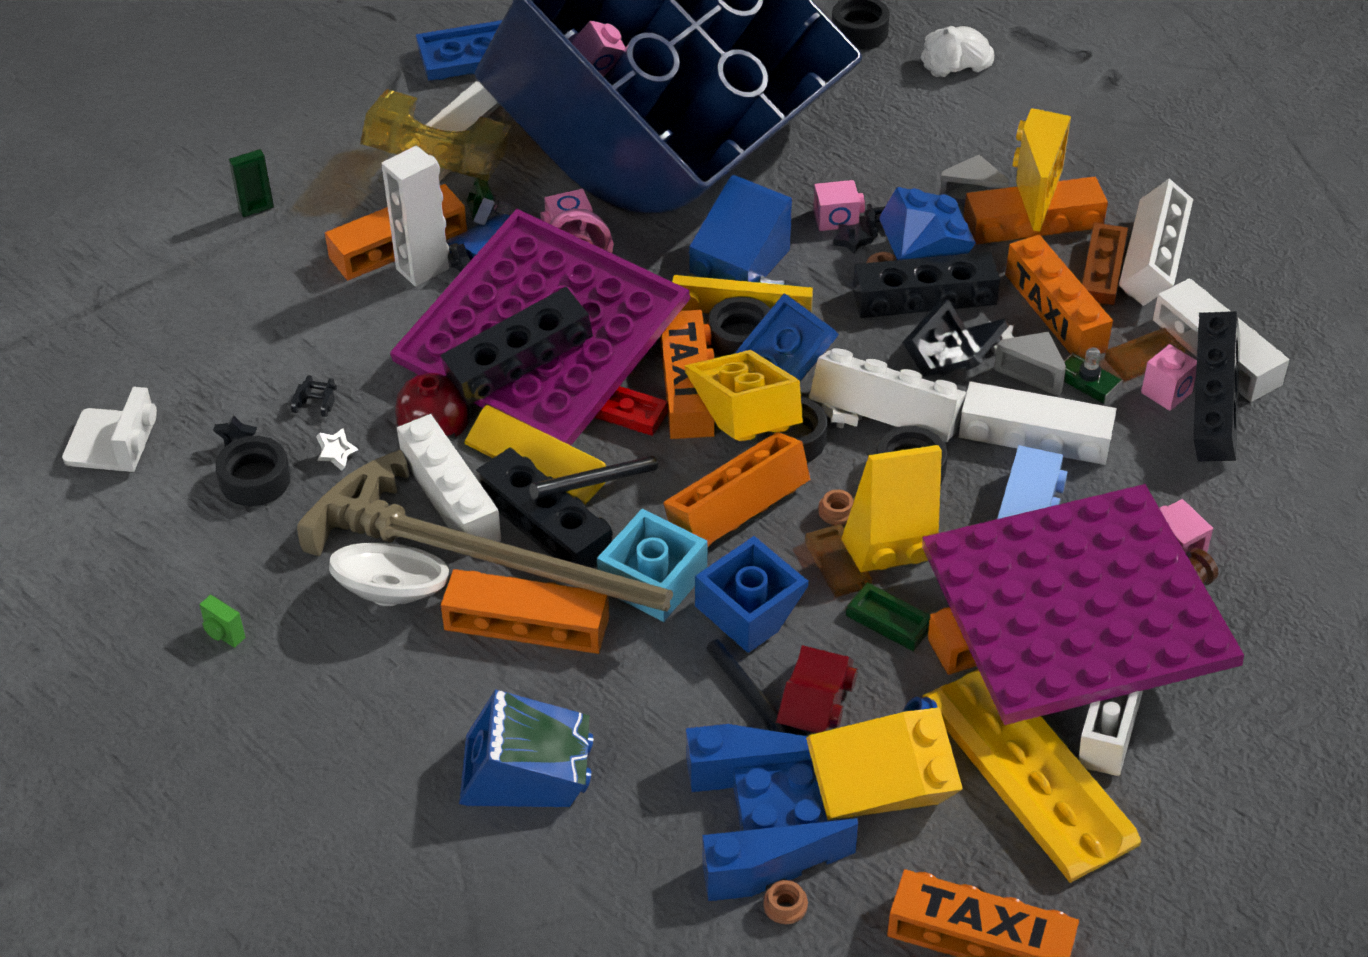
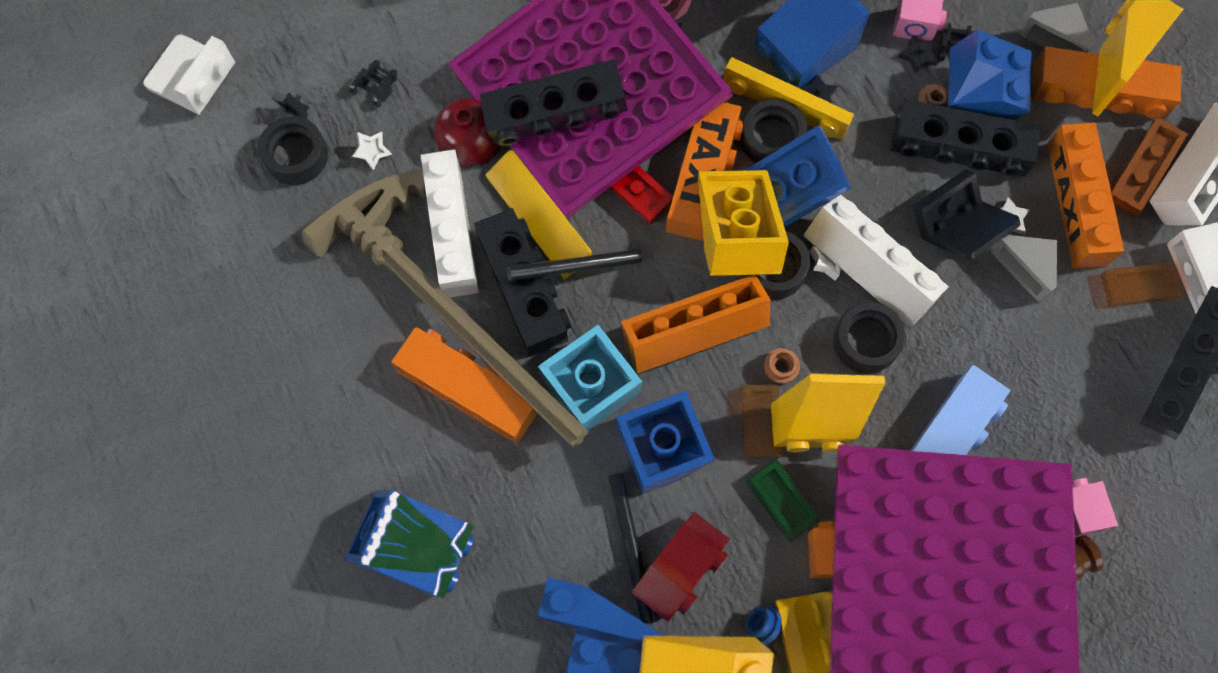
camera: 20 degrees right, 25 degrees up
(221, 621) = (210, 306): bright green plate -> none
(388, 572) = (361, 306): white dish -> none
(1037, 421) = (1005, 337): white brick -> none
(1090, 377) = (1077, 295): dark green piece -> none
(1169, 377) = (1153, 327): bright pink brick -> none

